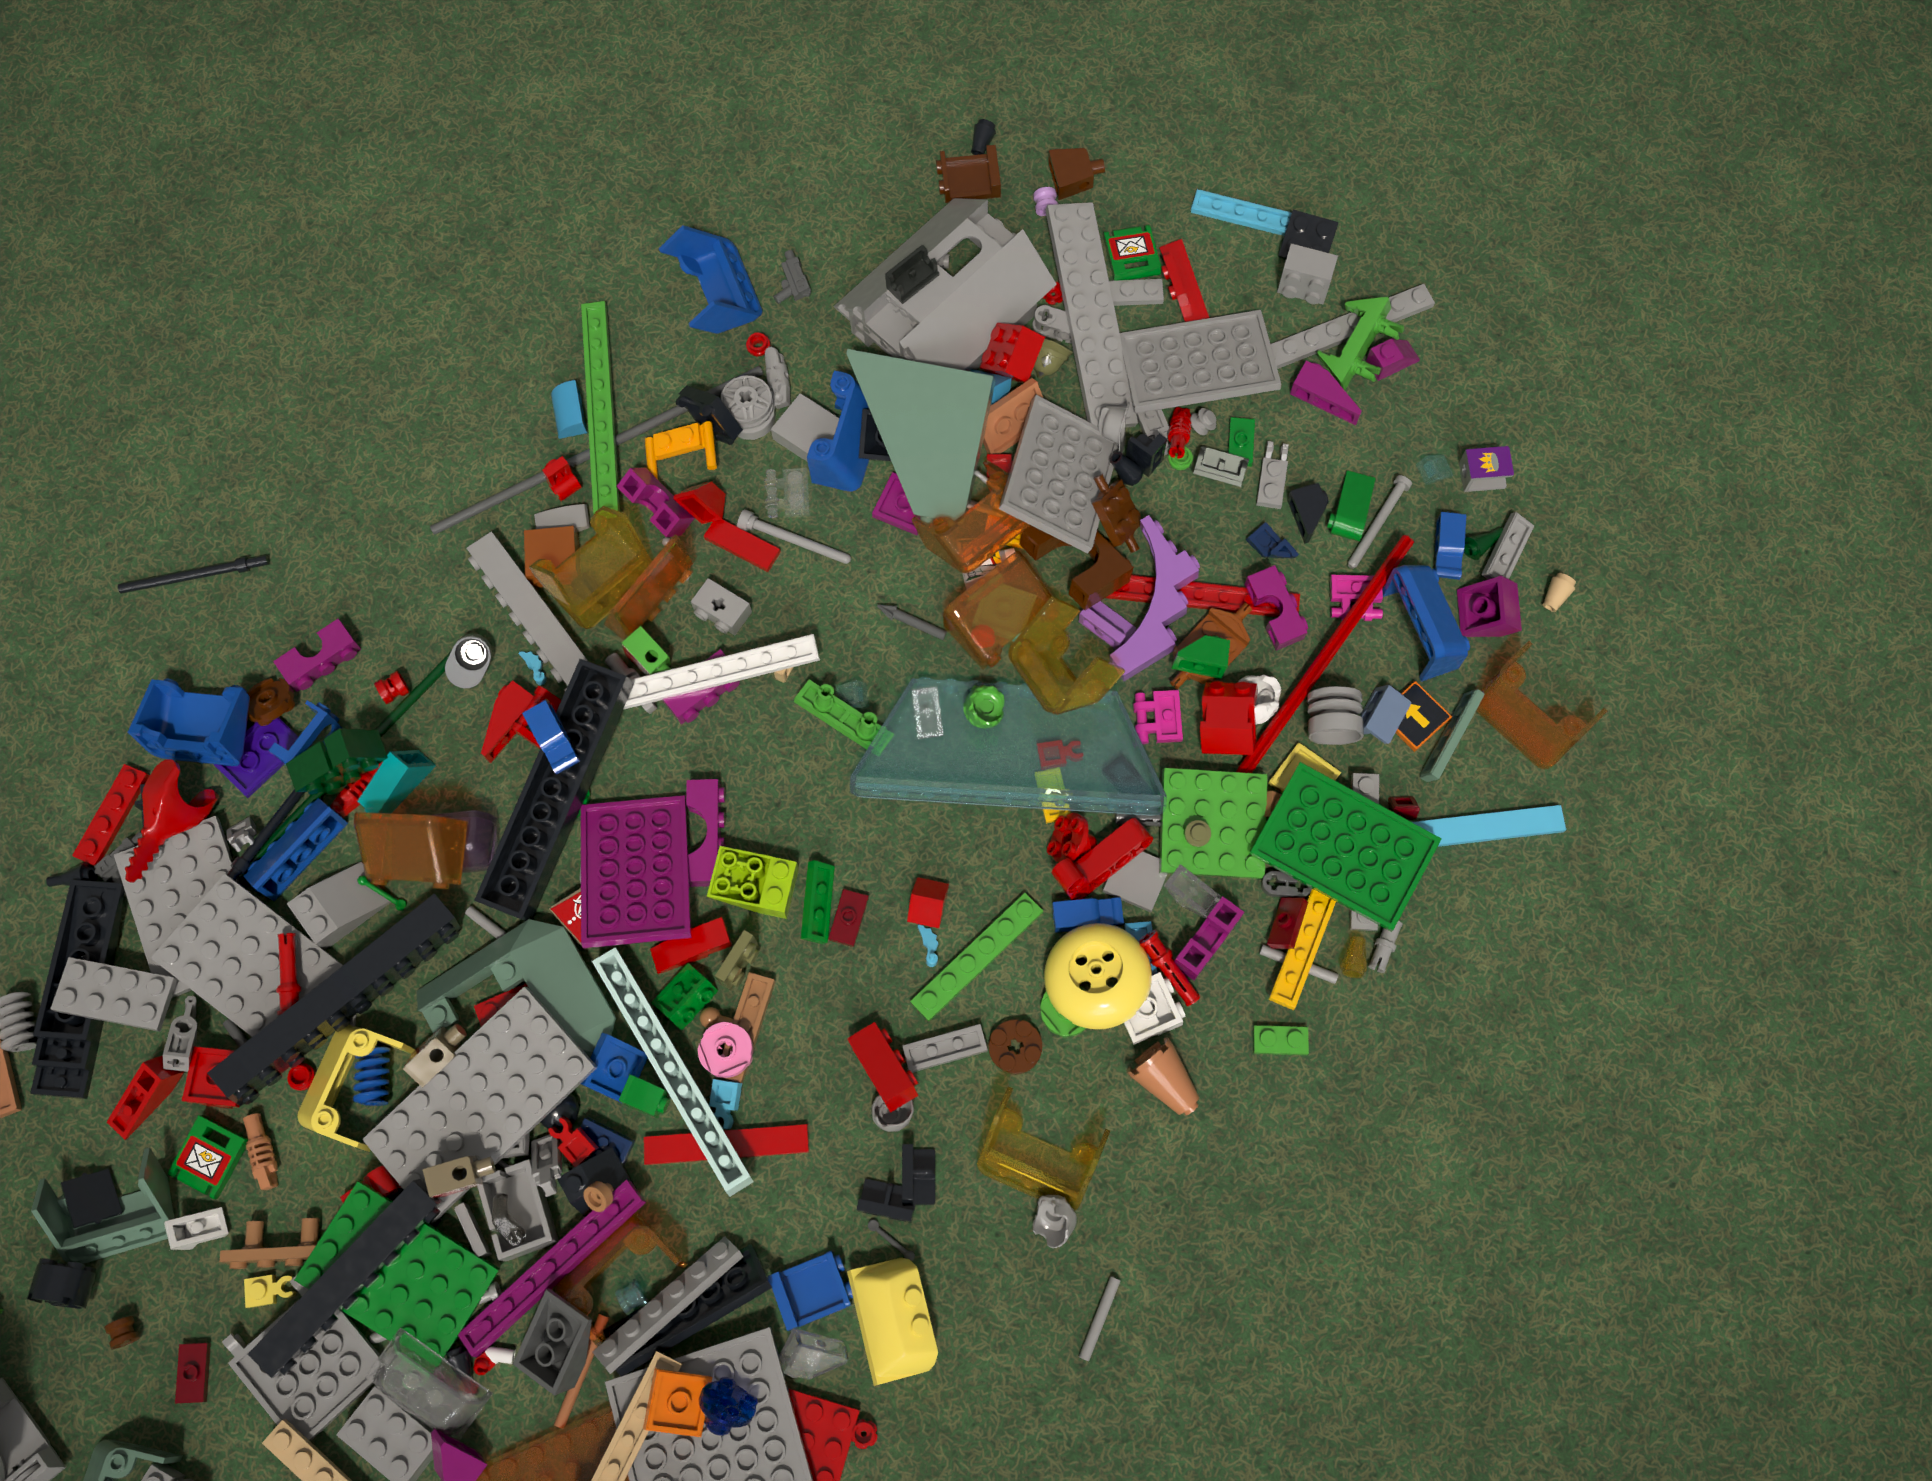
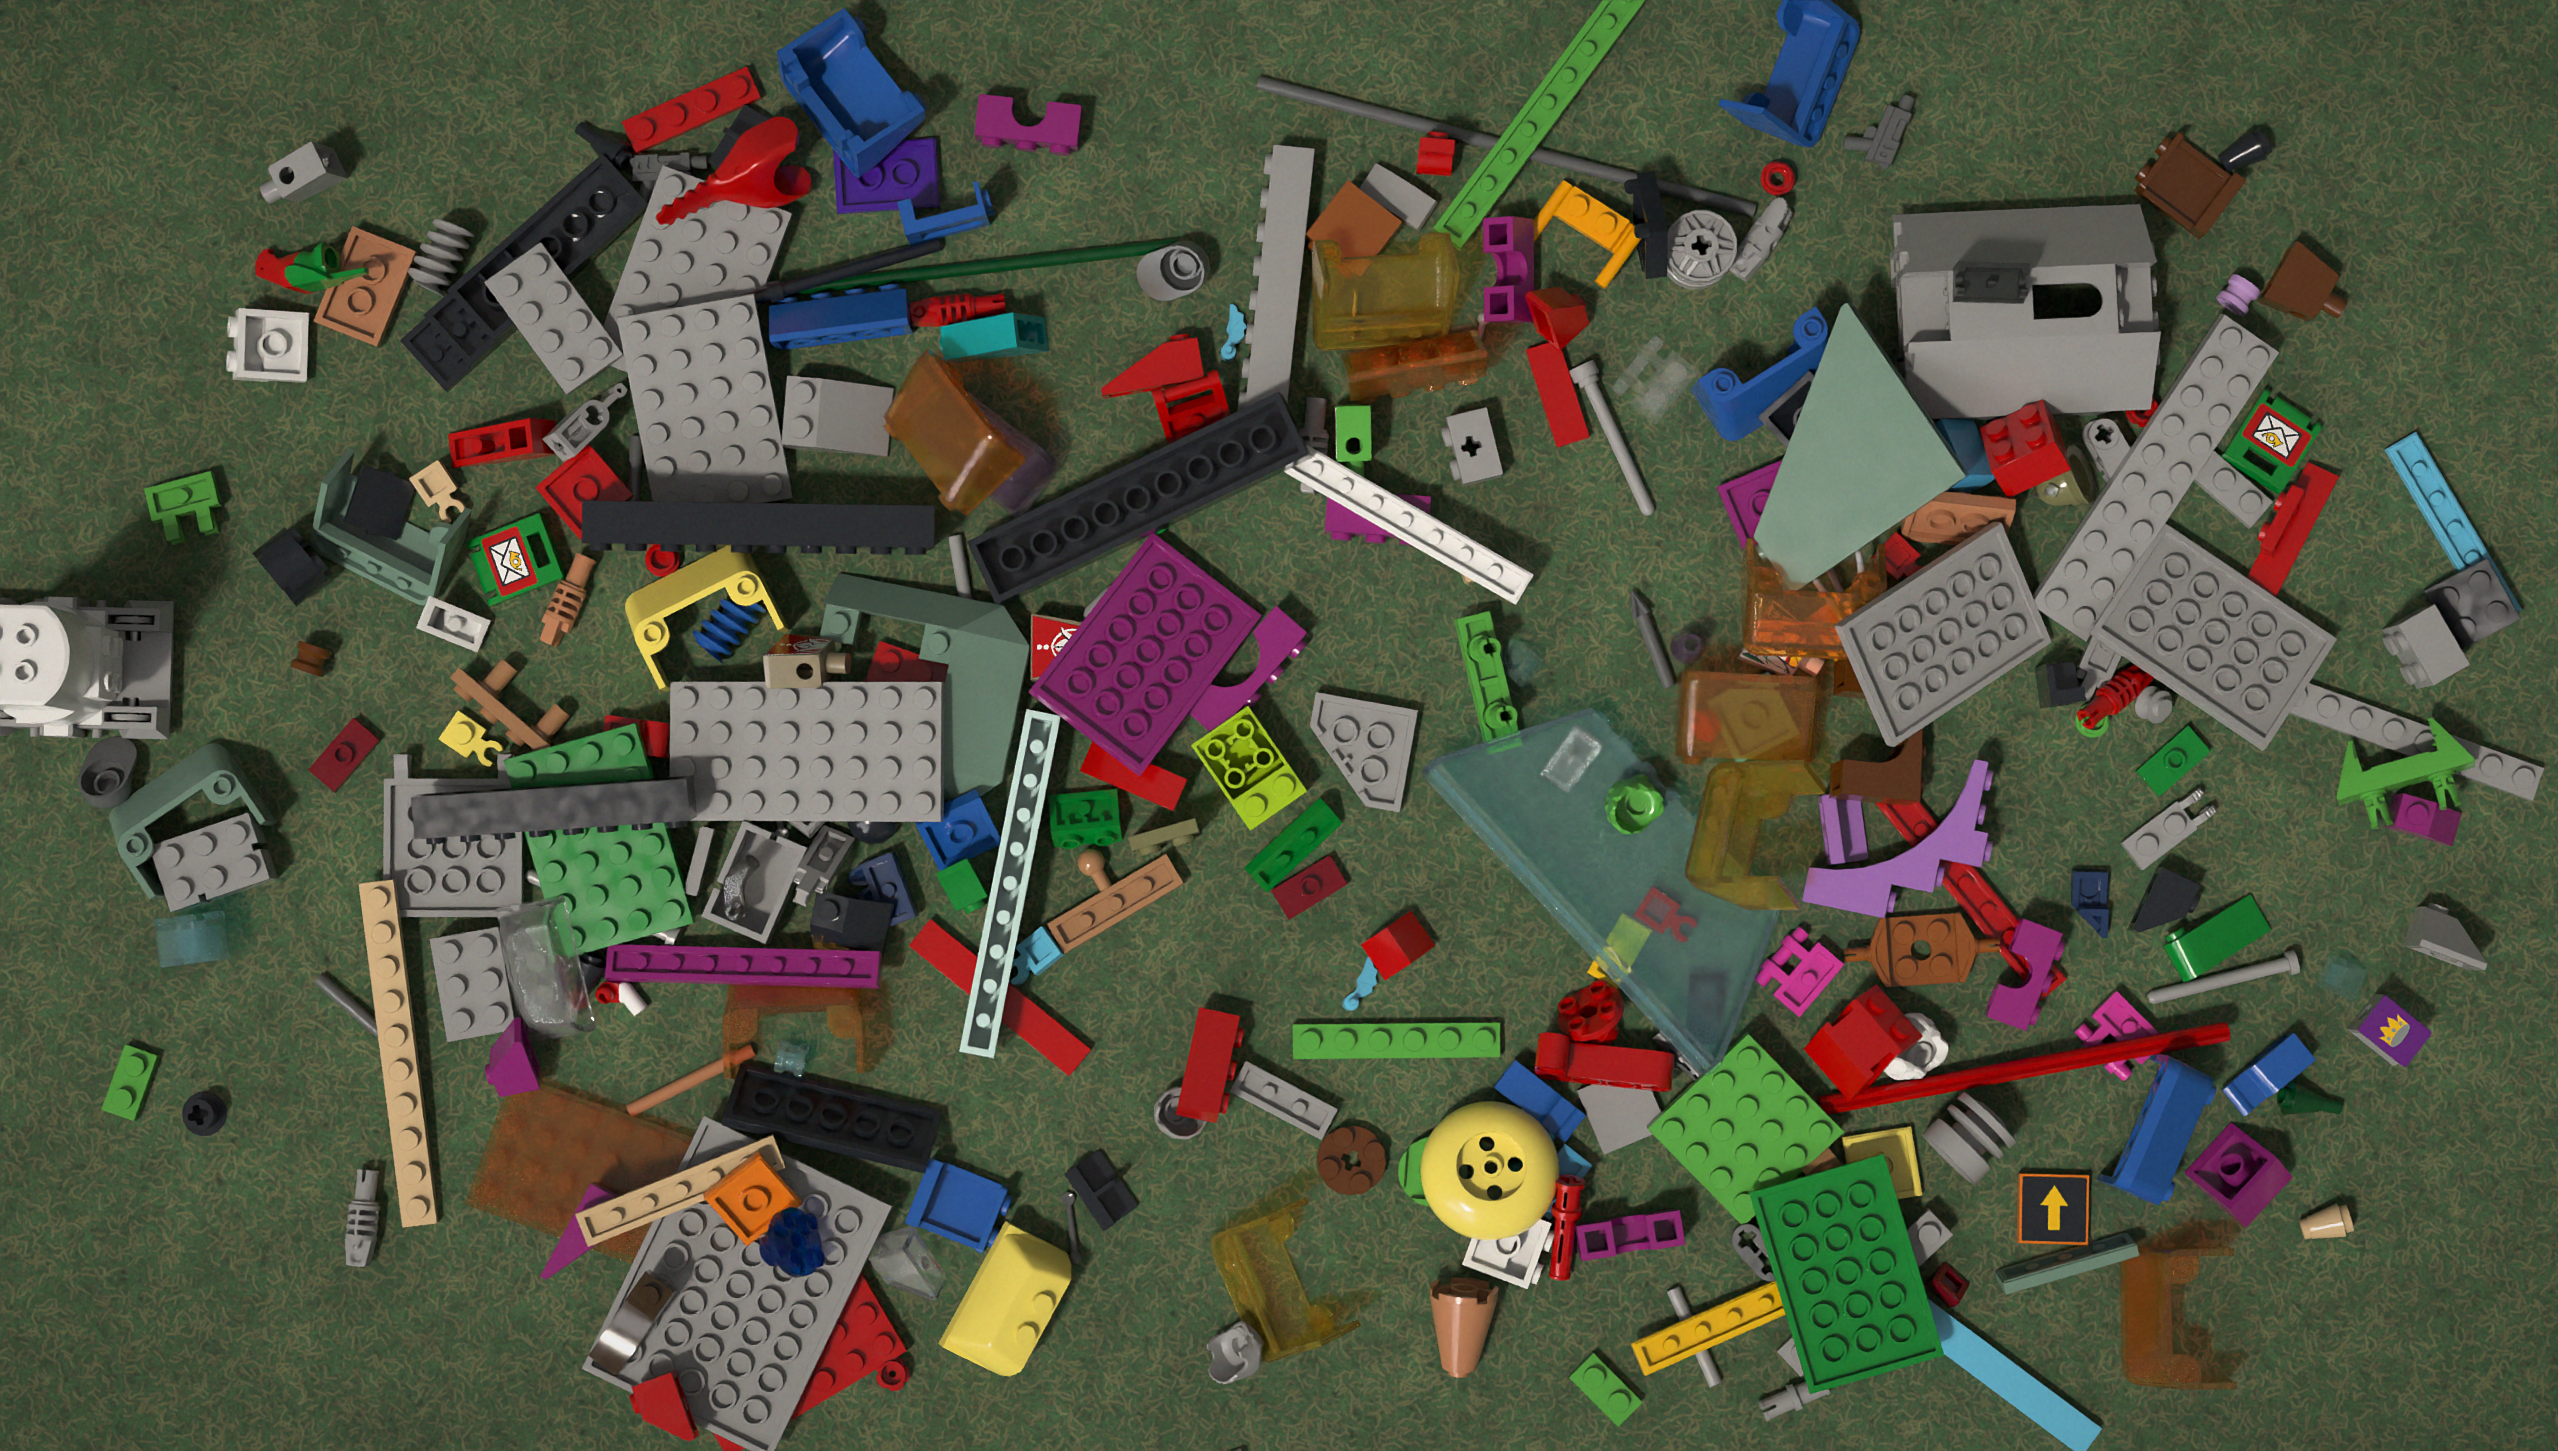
camera: 40 degrees right, 15 degrees up
(121, 1157) = (436, 485): none -> tan plate
(241, 833) = (801, 254): light grey plate -> none
(280, 696) = (945, 147): reddish brown plate -> none
(288, 988) = (721, 467): red pin -> none
(350, 754) = (953, 278): dark green piece -> none
(391, 687) = (1065, 228): red wheel -> none
(399, 904) = (893, 468): green hinge -> none
(447, 1177) = (716, 805): dark tan torso -> none
(551, 736) = (1180, 452): blue piece -> none
(555, 1344) = (688, 1042): dark grey slope -> none
(568, 410) = (1512, 73): dark azure brick -> none
(576, 1144) = (861, 872): red plate -> none
(598, 1196) = (841, 945): medium nougat tile -> none
(667, 1304) = (819, 1098): light grey plate -> none
(720, 1064) = (1059, 920): bright pink plate -> none
(802, 425) = (1739, 331): light grey brick -> none
(809, 812) = (1367, 744): none -> light grey plate
(918, 1176) = (1149, 1194): black panel -> none
(934, 605) = (1681, 653): none -> cone
(1113, 425) = (2051, 626): light grey piece -> none
(1117, 512) = (1962, 726): reddish brown plate -> none
(1127, 470) = (2021, 684): black cone -> none
(1191, 892) = (1657, 1177): clear slope -> none
(1197, 833) = (1716, 1128): olive plate -> none
(1204, 657) = (1900, 960): green slope -> none
(1221, 466) = (2121, 772): hinge -> none
(1287, 923) = (1720, 1290): dark red plate -> none
(1322, 390) = (2311, 785): magenta slope -> none
(1354, 961) = (1750, 1383): clear yellow cone -> none
(1384, 713) = (2022, 1178): sand blue panel -> none
(1465, 401) = (2443, 938): none -> light grey slope
(1508, 547) = (2324, 1132): light grey tile -> none

